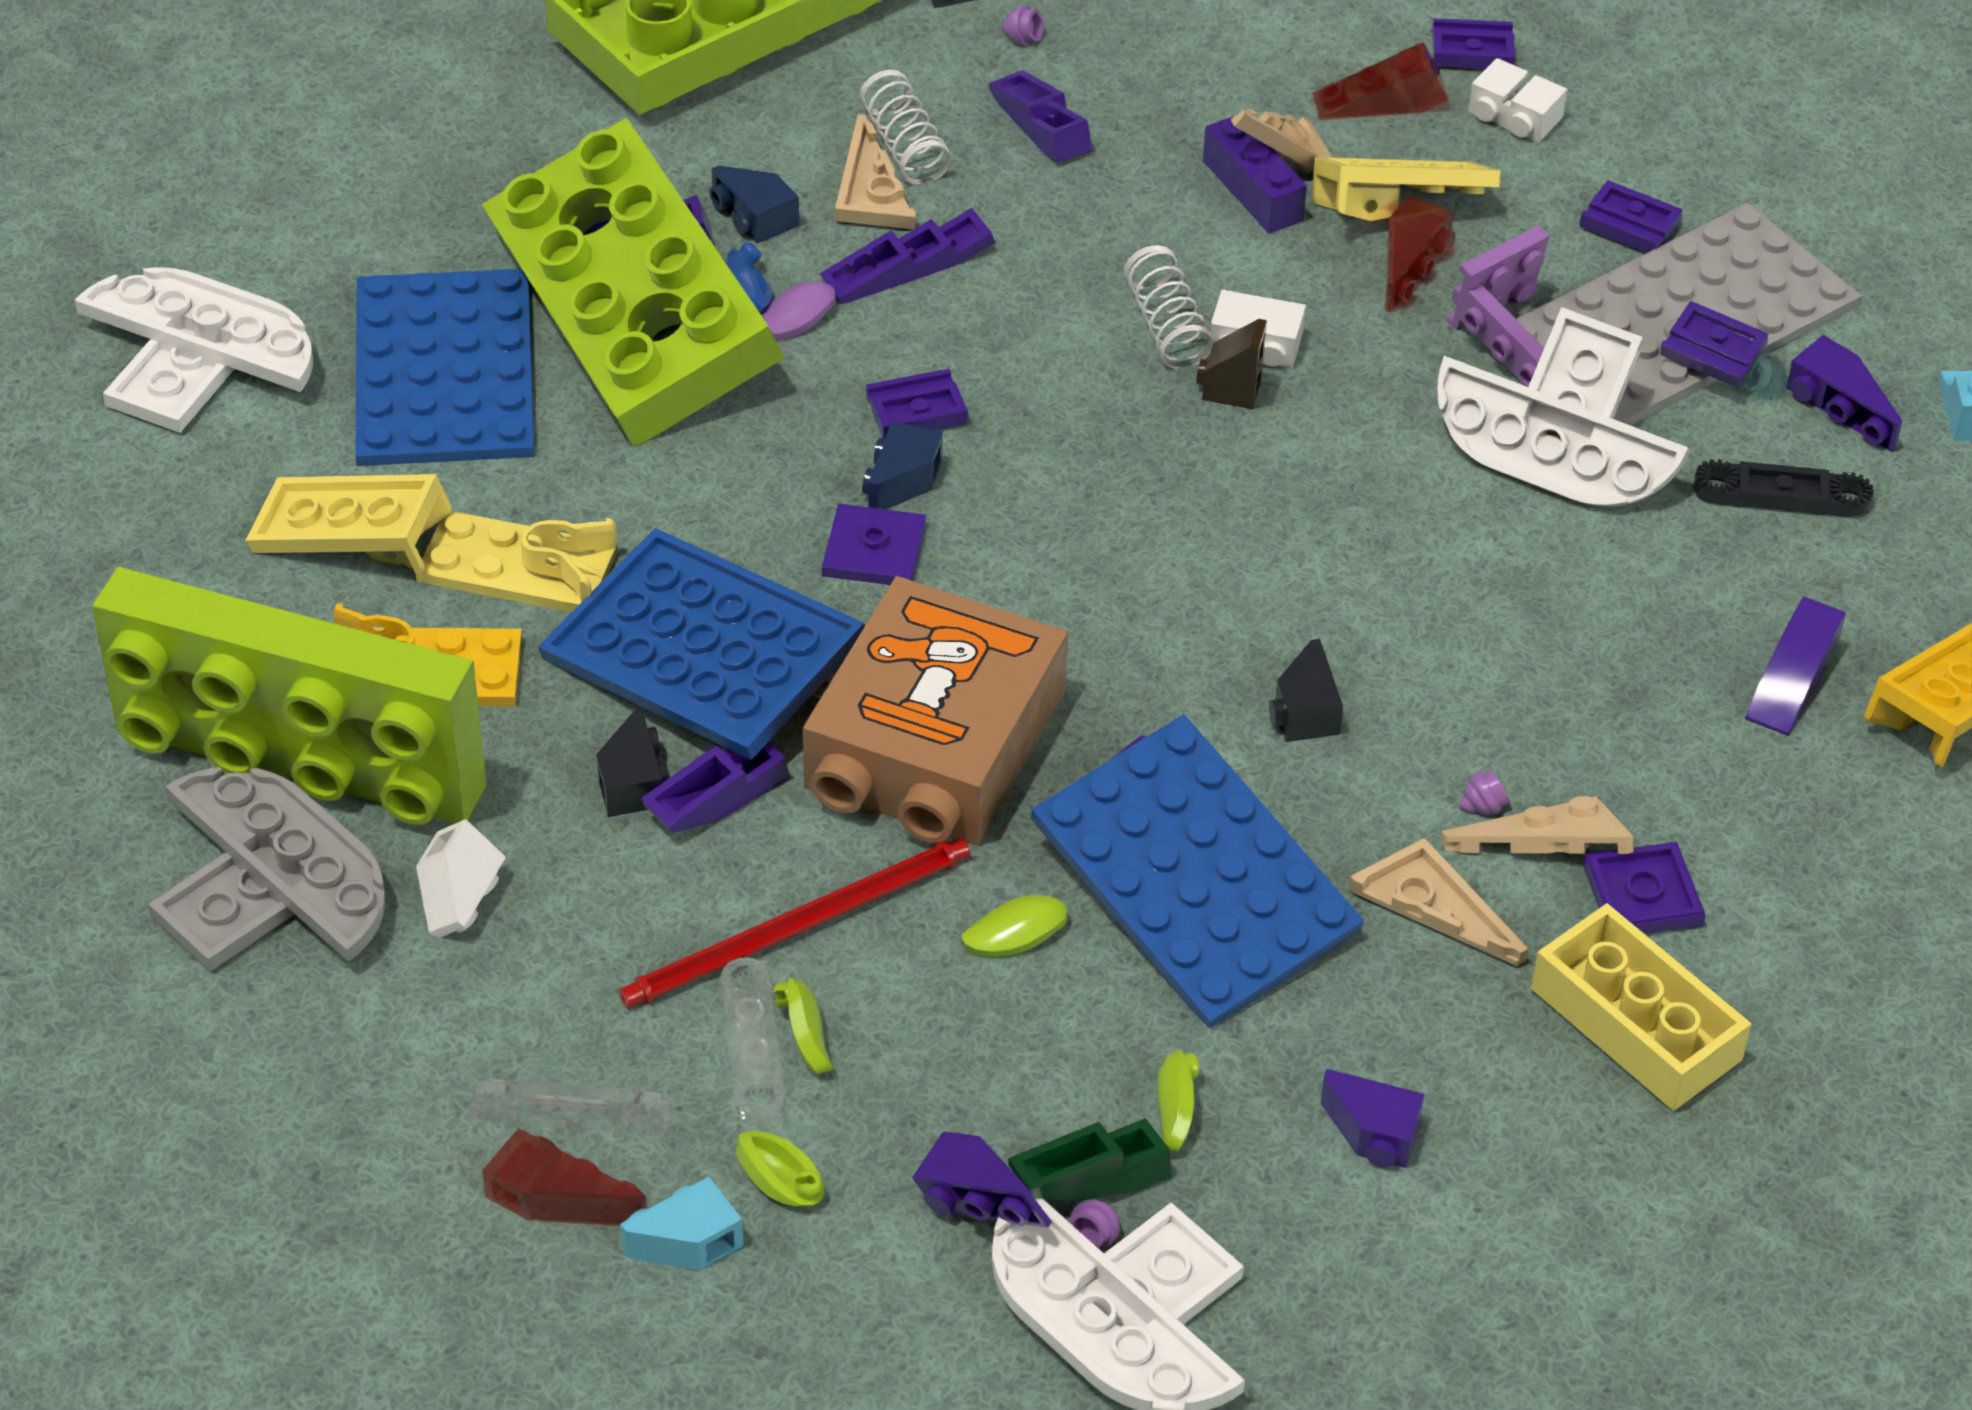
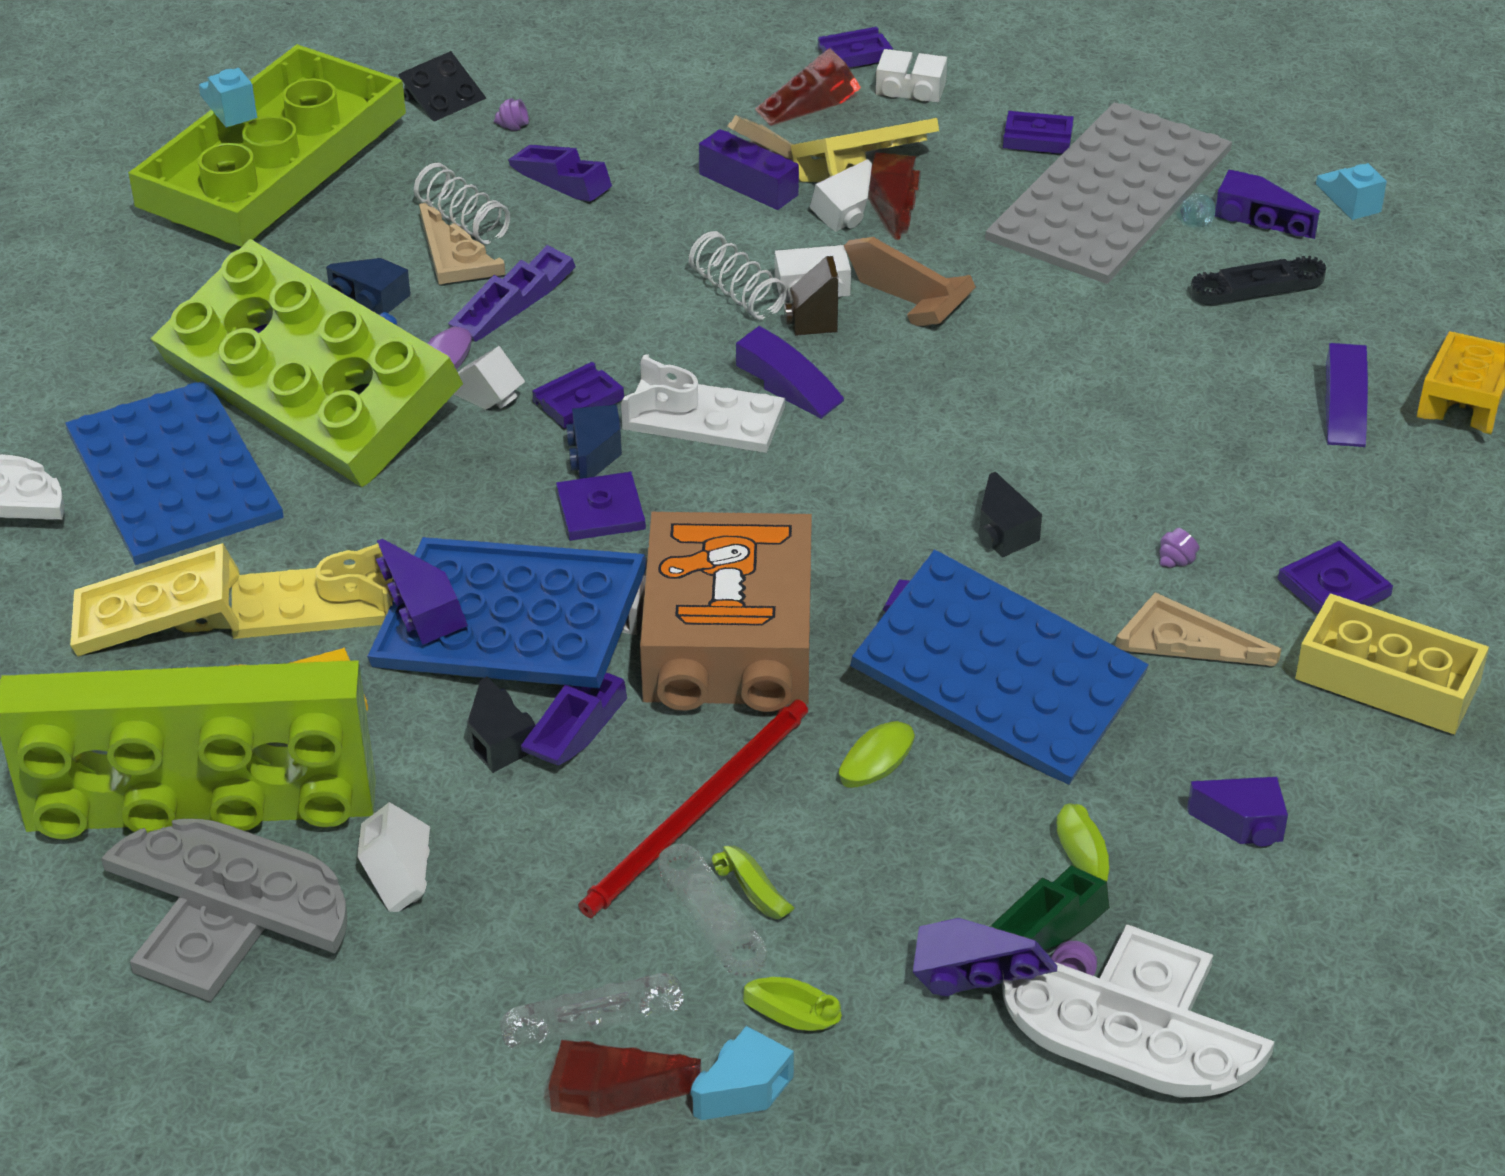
camera: 20 degrees left, 5 degrees down
(616, 596) = (425, 592): none -> dark purple slope
(822, 359) = (489, 380): none -> white slope
(1042, 464) = (699, 411): none -> white plate
(1160, 446) = (786, 372): none -> dark purple slope
(1346, 240) = (843, 197): none -> white slope
(1362, 371) = (905, 278): none -> medium nougat piece
(1489, 284) = (977, 215): medium lavender bracket -> none
(1544, 829) = (1240, 560): tan wing -> none
(1562, 424) = (1080, 274): white plate -> none
(1714, 344) = (1156, 195): dark purple plate -> none

